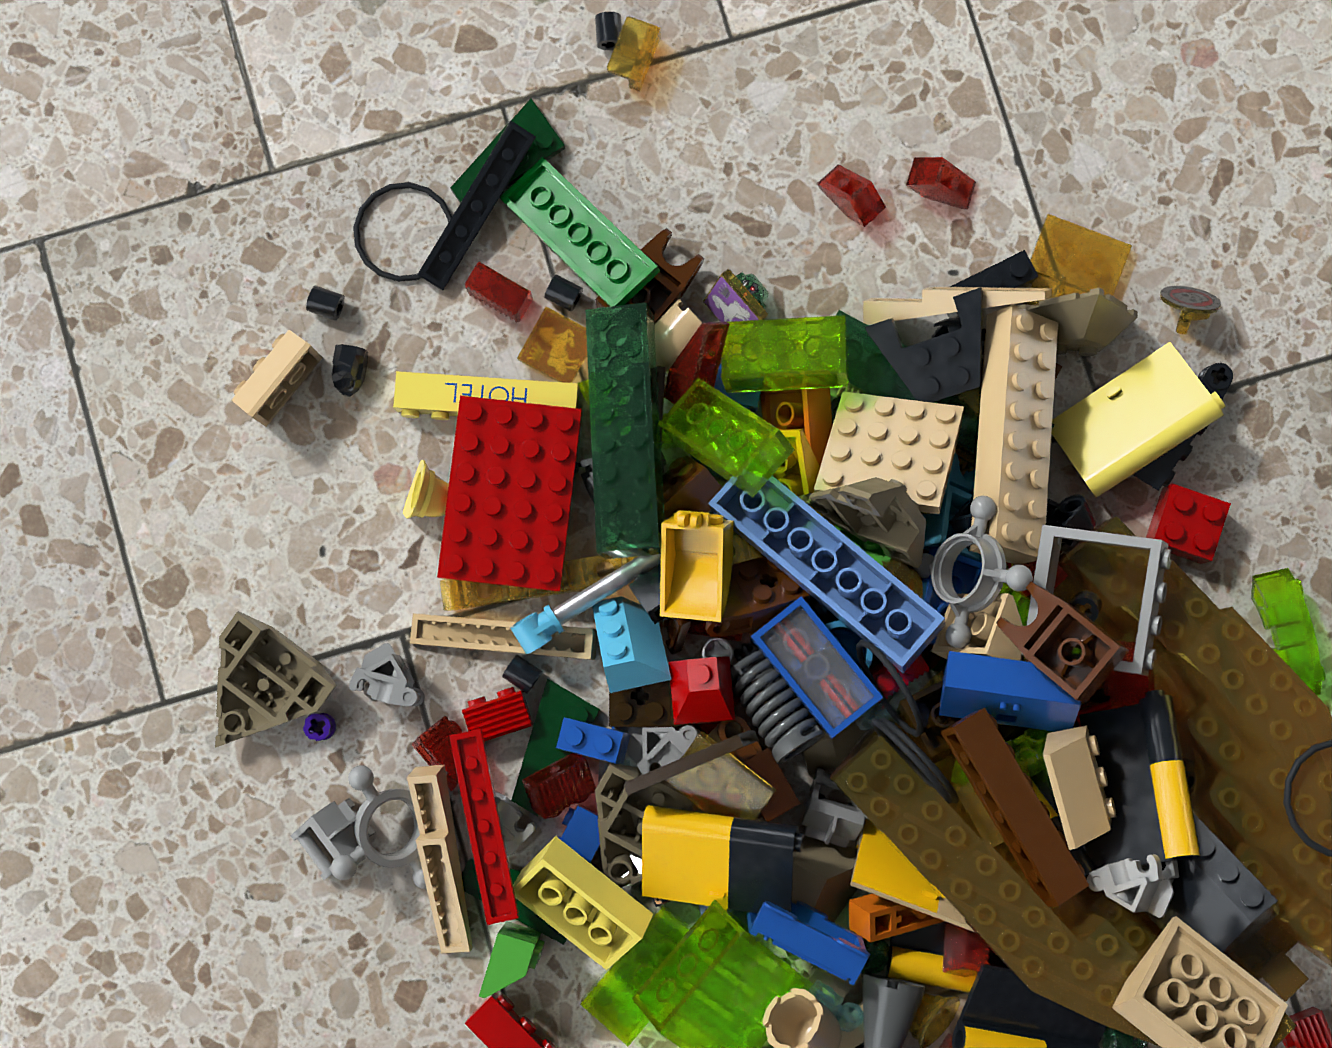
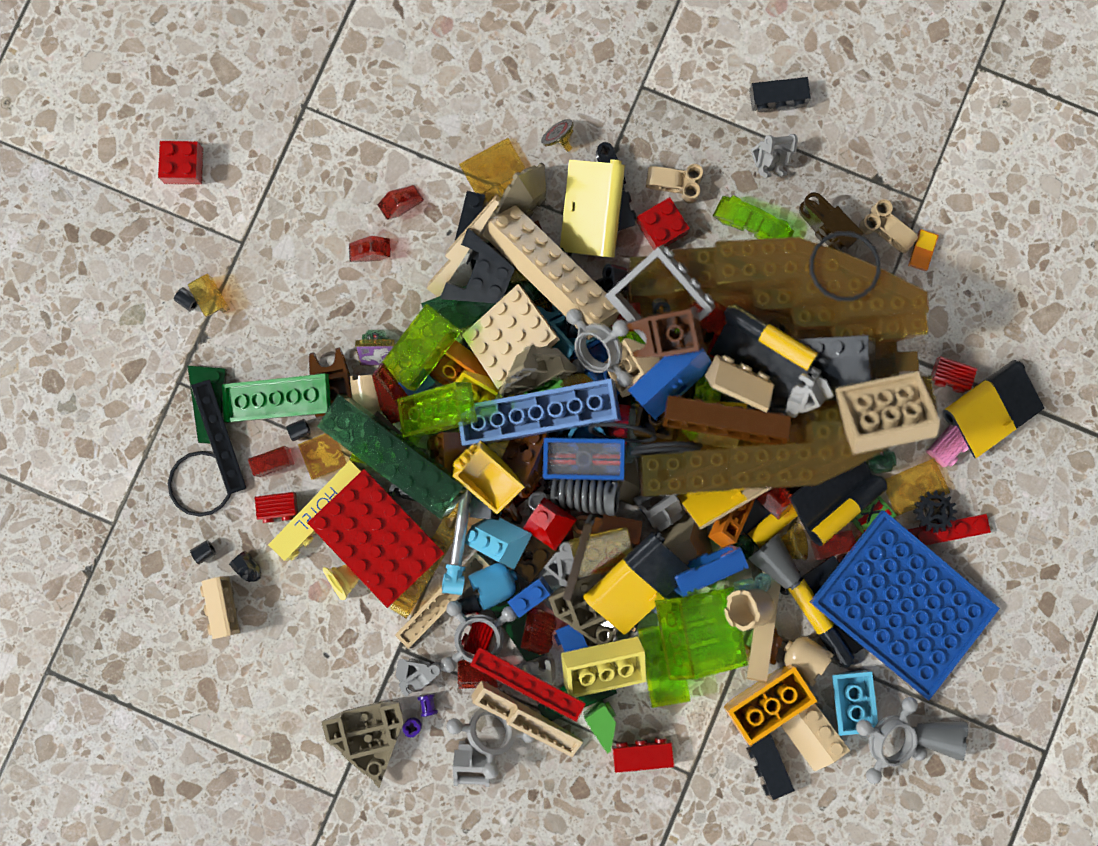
camera: 50 degrees left, 0 degrees up
(361, 723) = (427, 705): none -> dark purple bush
(450, 343) = (276, 506): none -> red brick
(502, 660) = (454, 609): none -> light grey piece
(572, 683) = (494, 584): none -> dark azure cylinder
(1255, 494) = (675, 181): none -> tan piece

